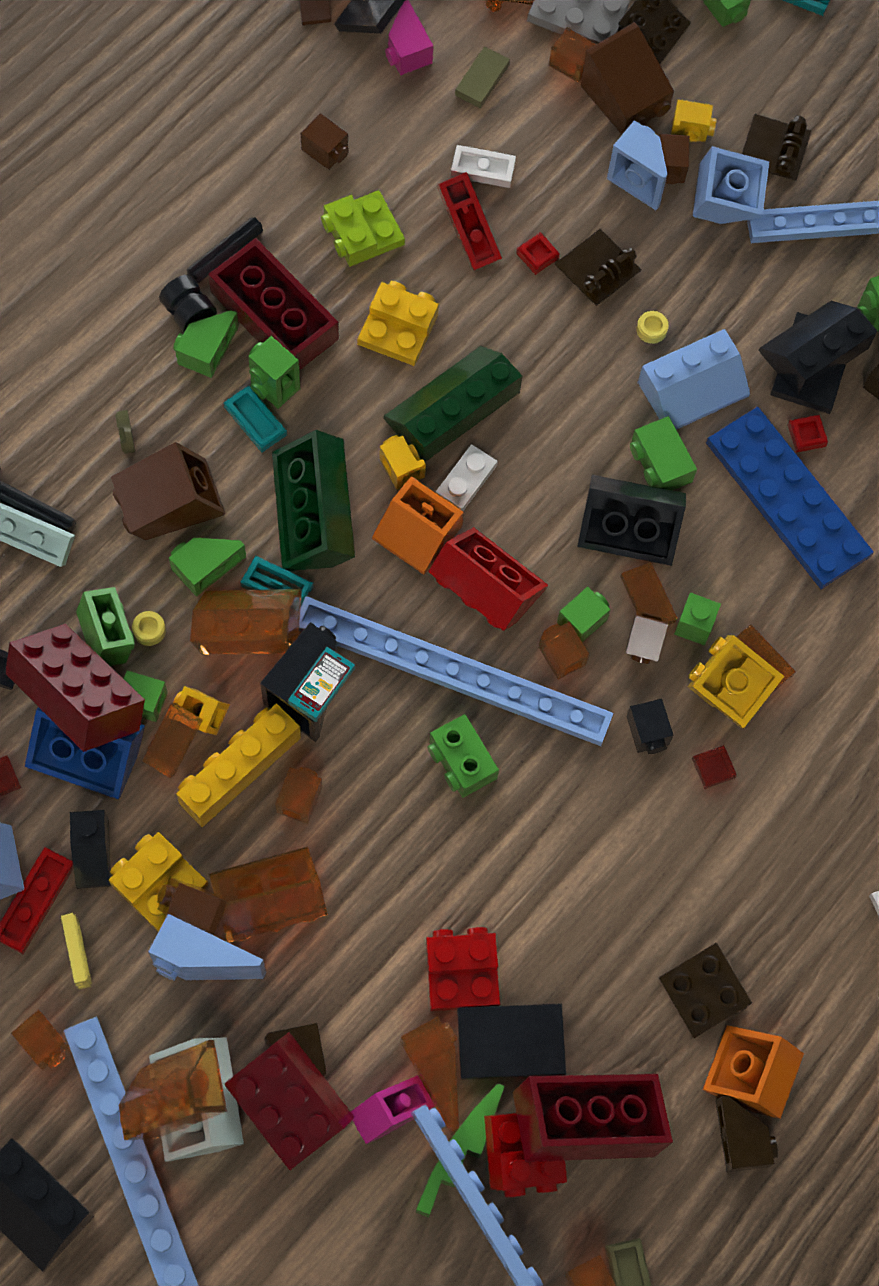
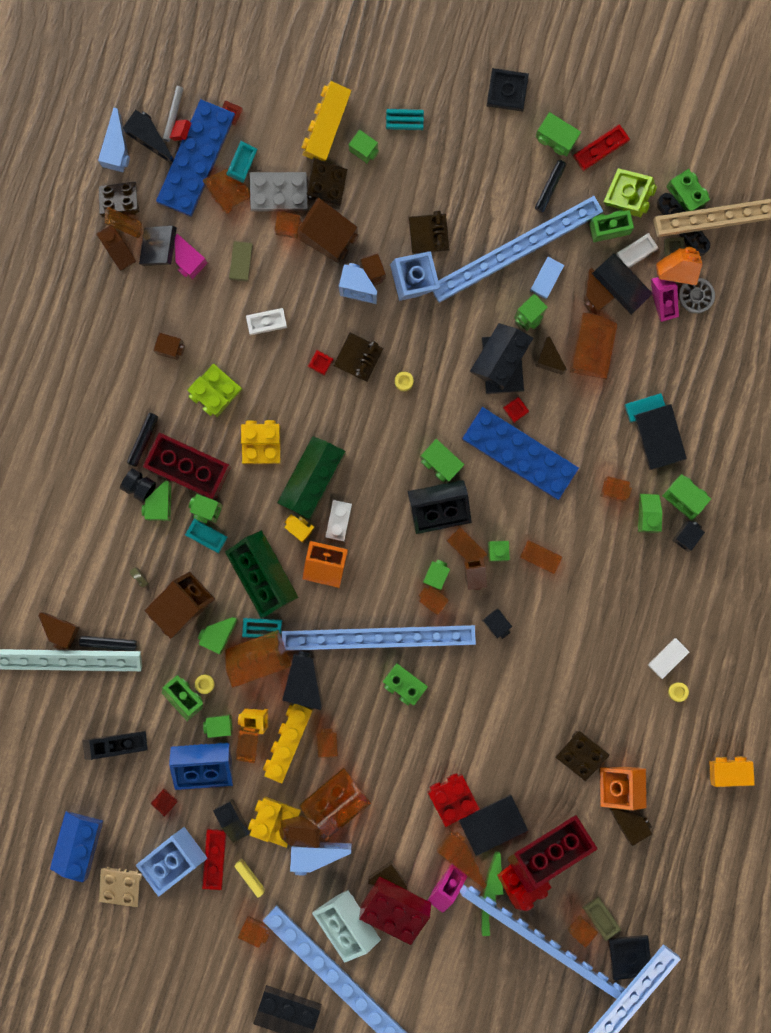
camera: 20 degrees left, 15 degrees up
(74, 687) = (183, 743): dark red brick -> none
(173, 1094) = (335, 934): clear orange slope -> none
(321, 684) = (315, 688): tile -> none
(469, 220) = (273, 361): red slope -> none
(487, 578) = (375, 576): red slope -> none
(693, 120) = (375, 239): yellow brick -> none
(695, 380) = (442, 407): light blue slope -> none
(714, 767) = (539, 629): clear red tile -> none
(734, 679) = (532, 578): yellow plate -> none

